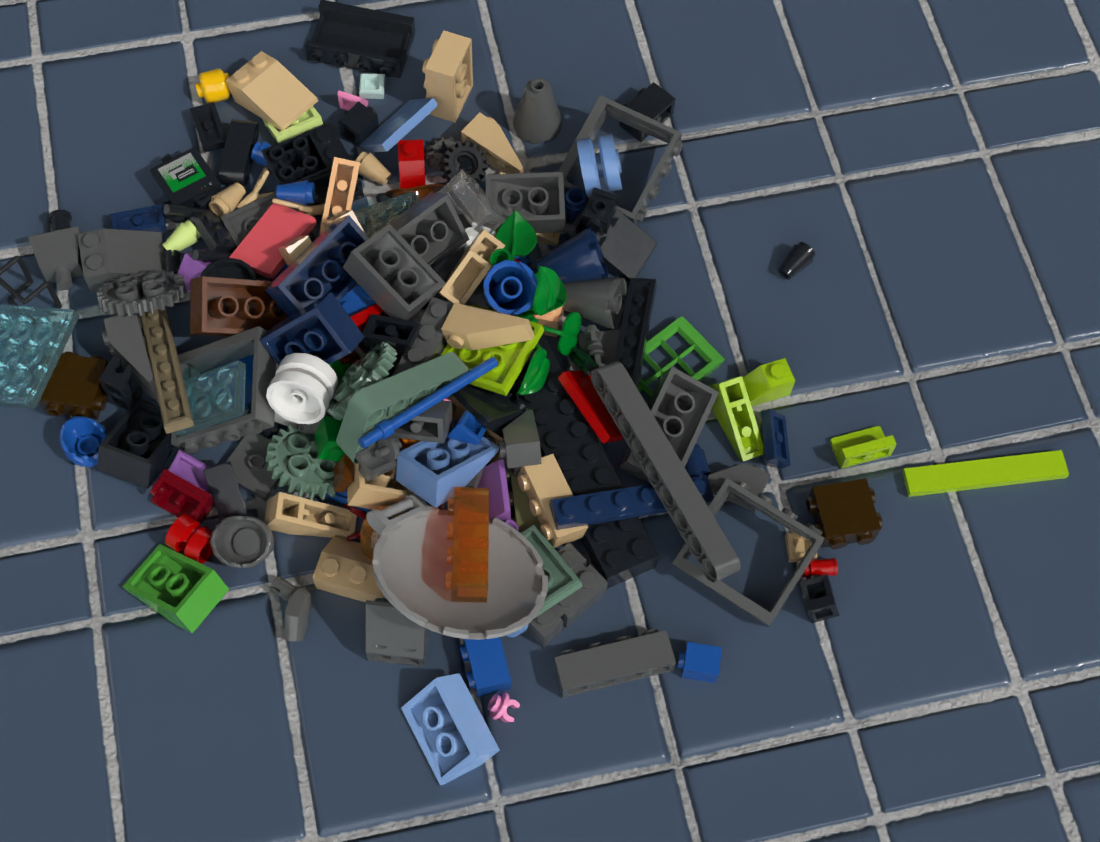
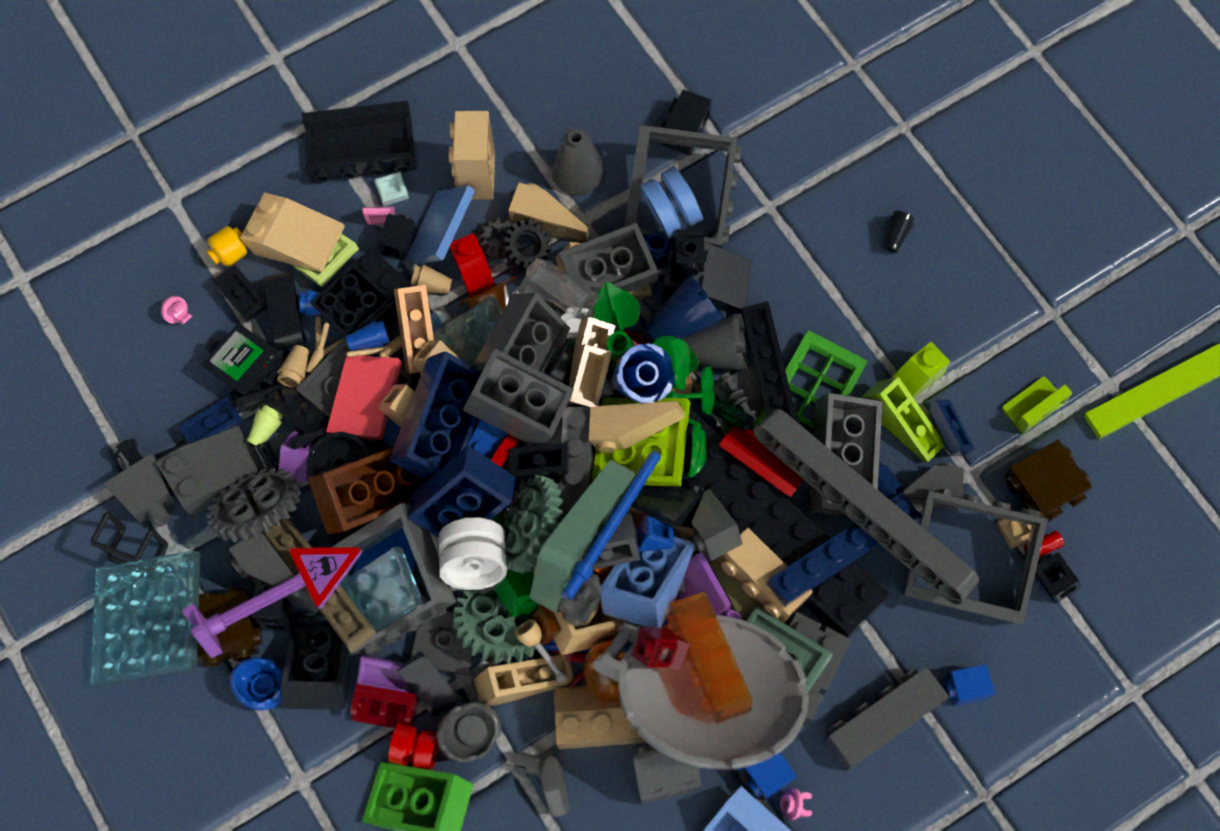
camera: 15 degrees left, 5 degrees up
(149, 122) = (175, 310): none -> bright pink plate
(168, 364) = (319, 571): none -> medium lavender piece
(326, 478) = (530, 635): none -> tan hinge
(427, 519) = (660, 648): none -> dark red window

